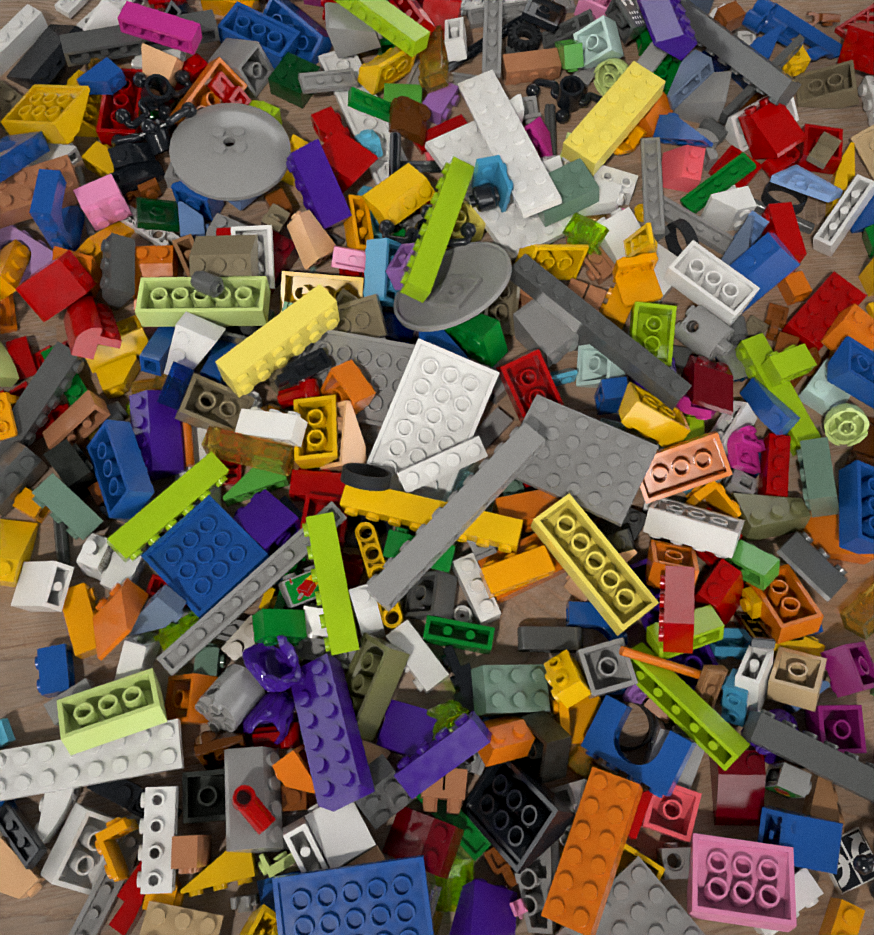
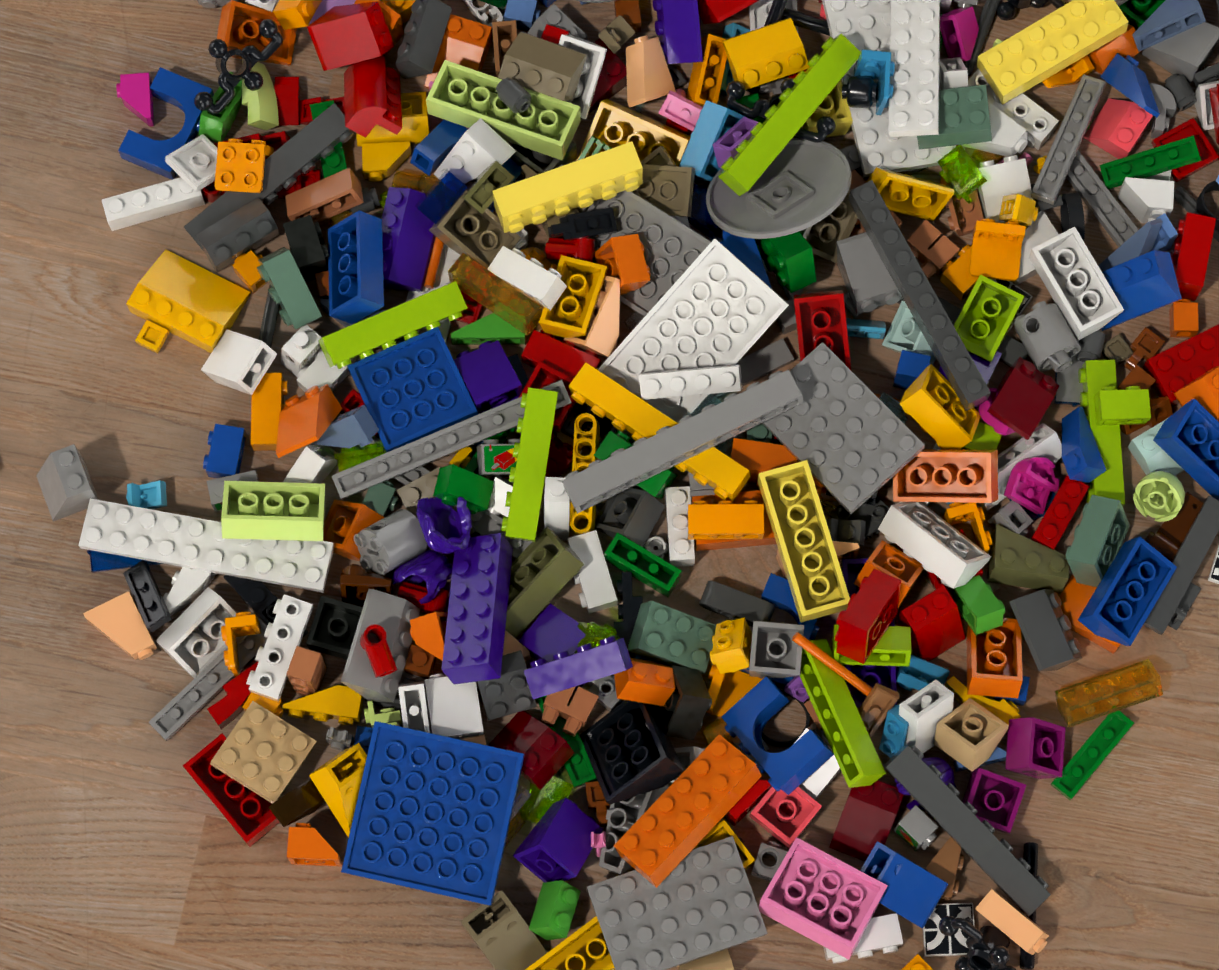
camera: 25 degrees right, 5 degrees up
(207, 371) = (493, 178): none -> olive slope
(366, 477) = (622, 370): black tyre -> none
(751, 603) = (962, 644): yellow plate -> none
(754, 631) = (949, 672): black tile -> none

